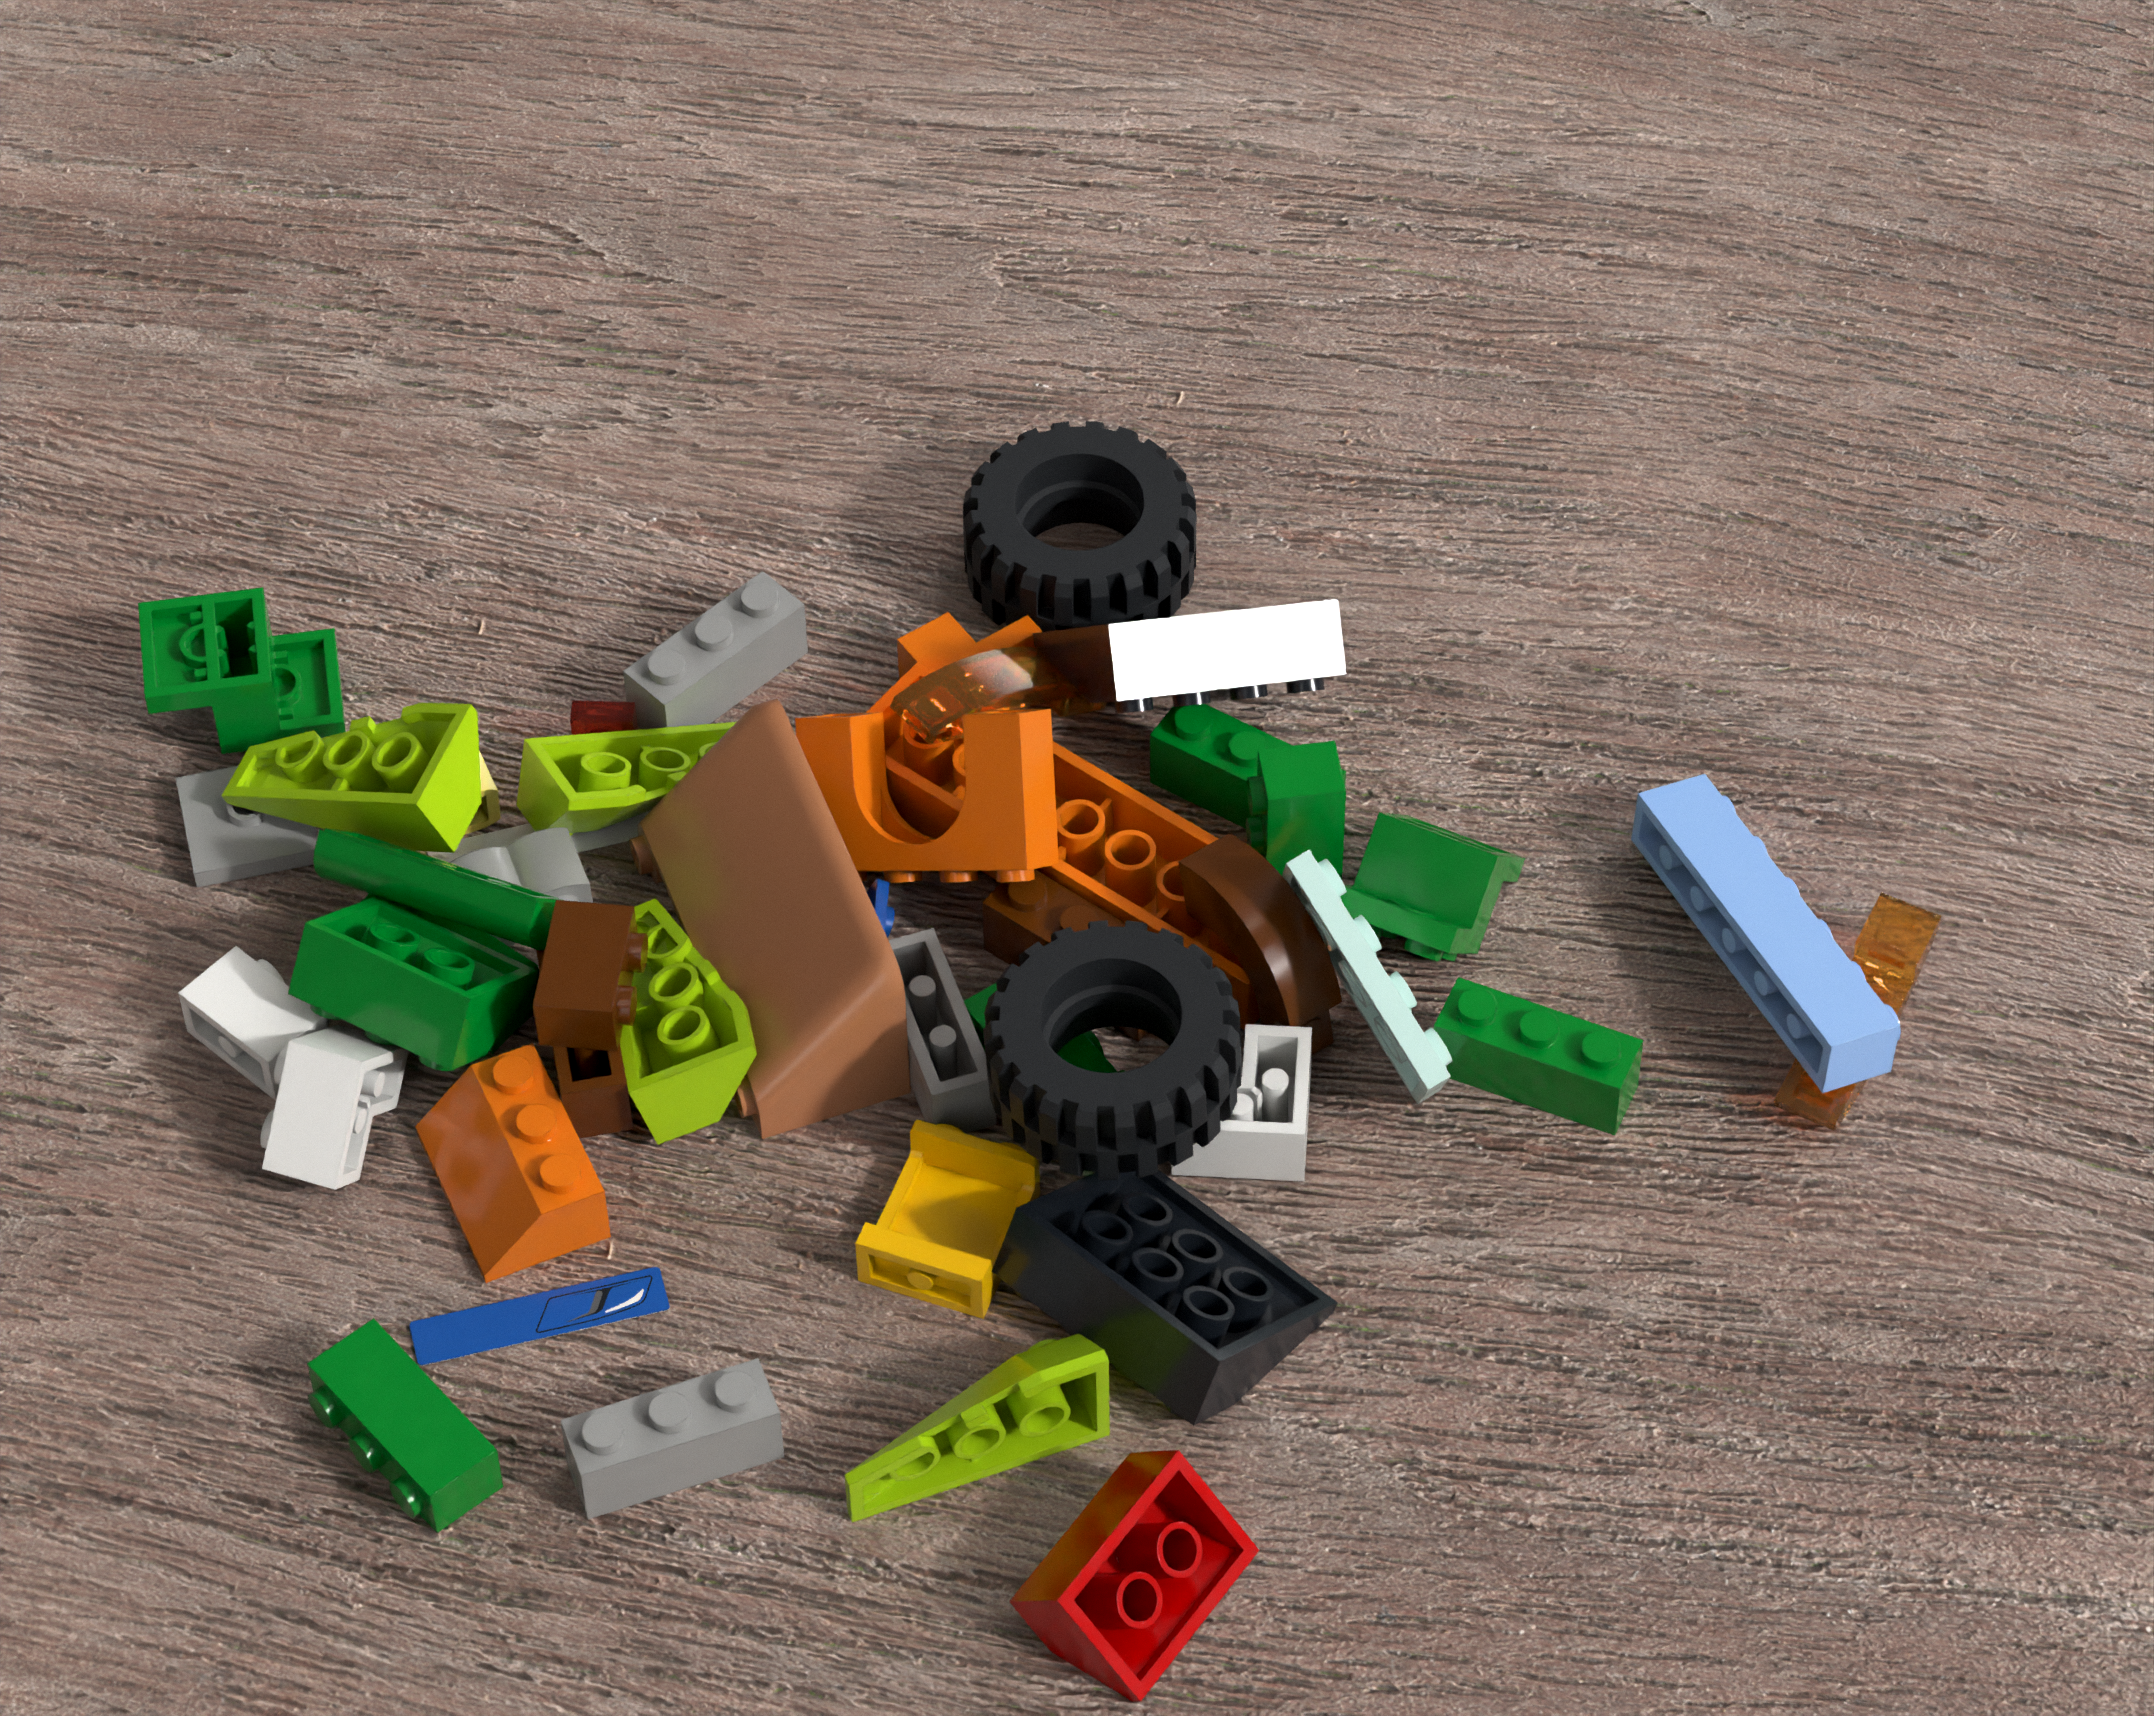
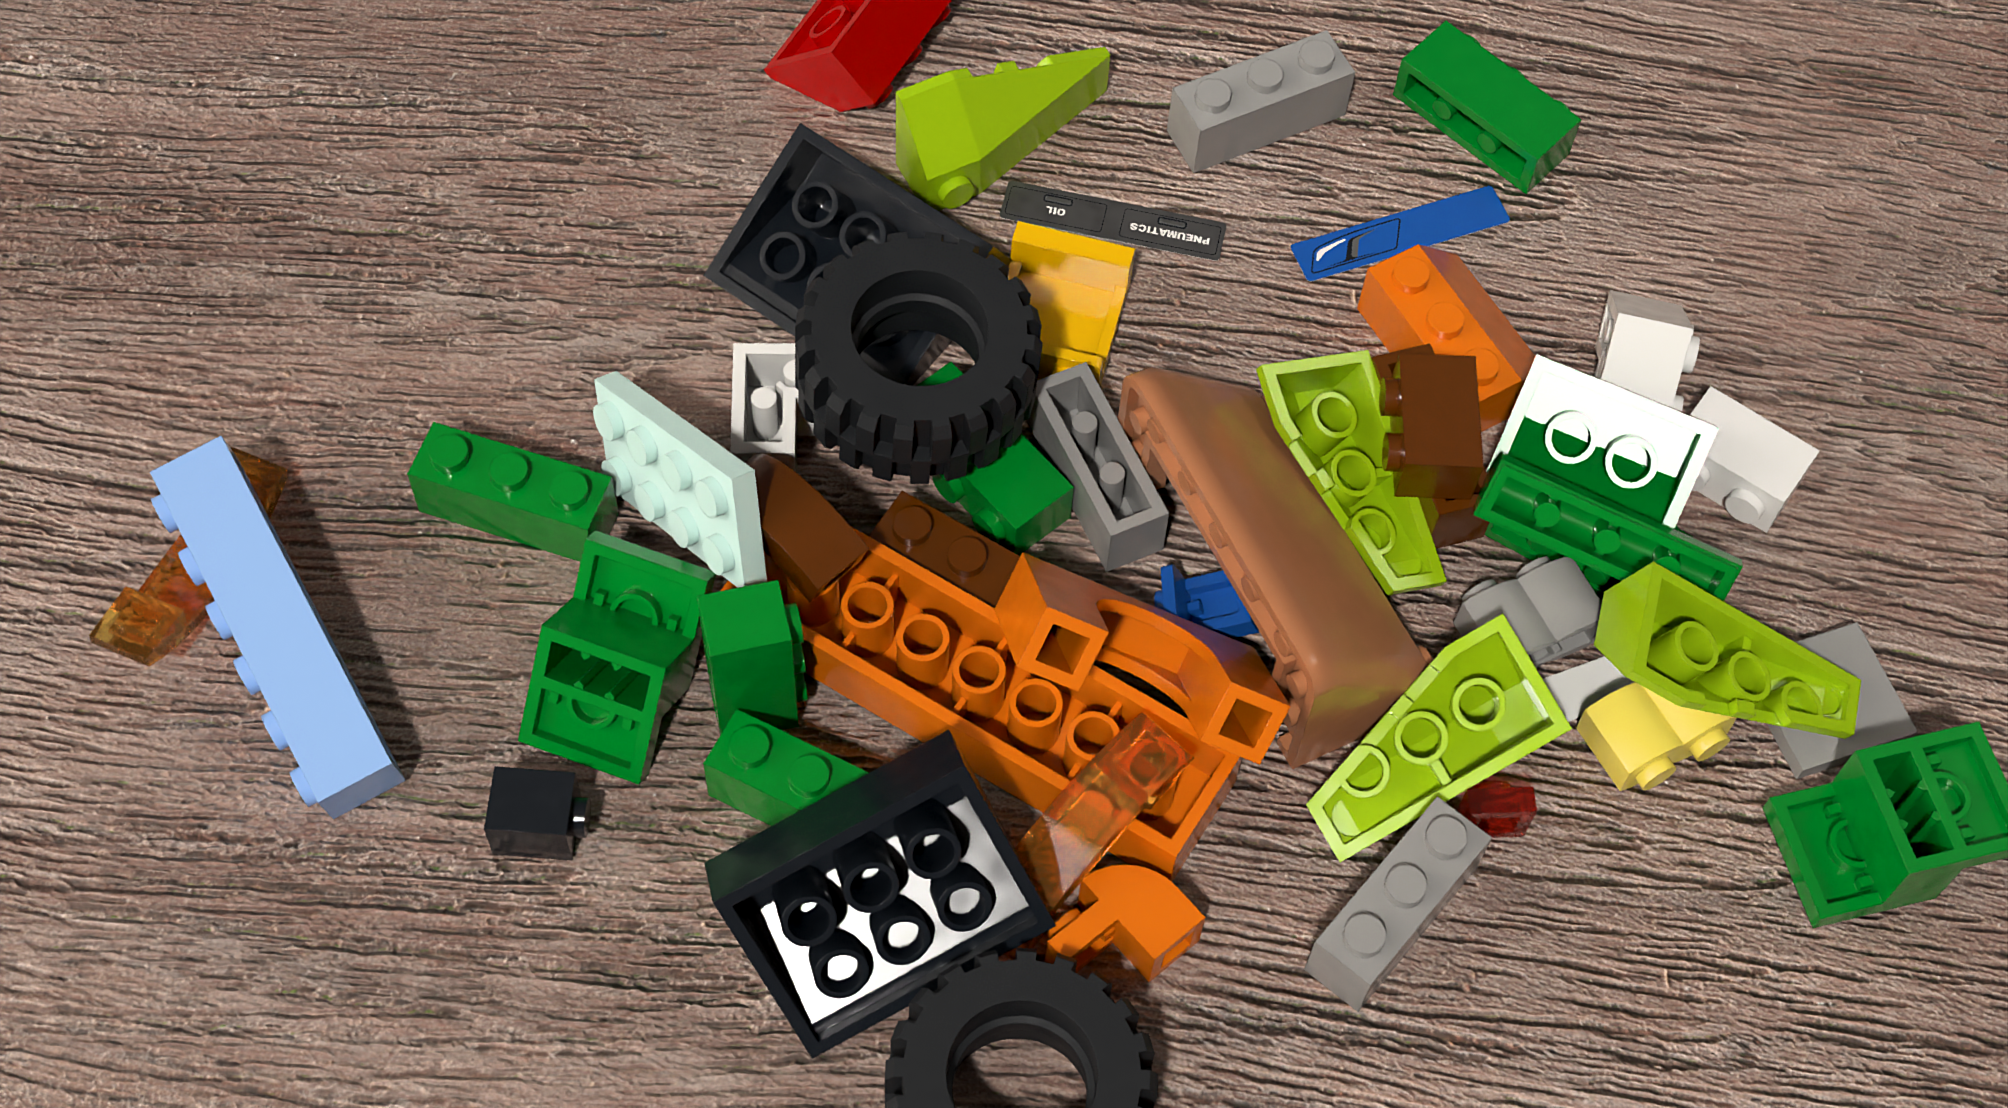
camera: 170 degrees right, 10 degrees up
(862, 1347) = (1113, 220): none -> flat silver sticker
(1503, 782) = (536, 813): none -> black brick

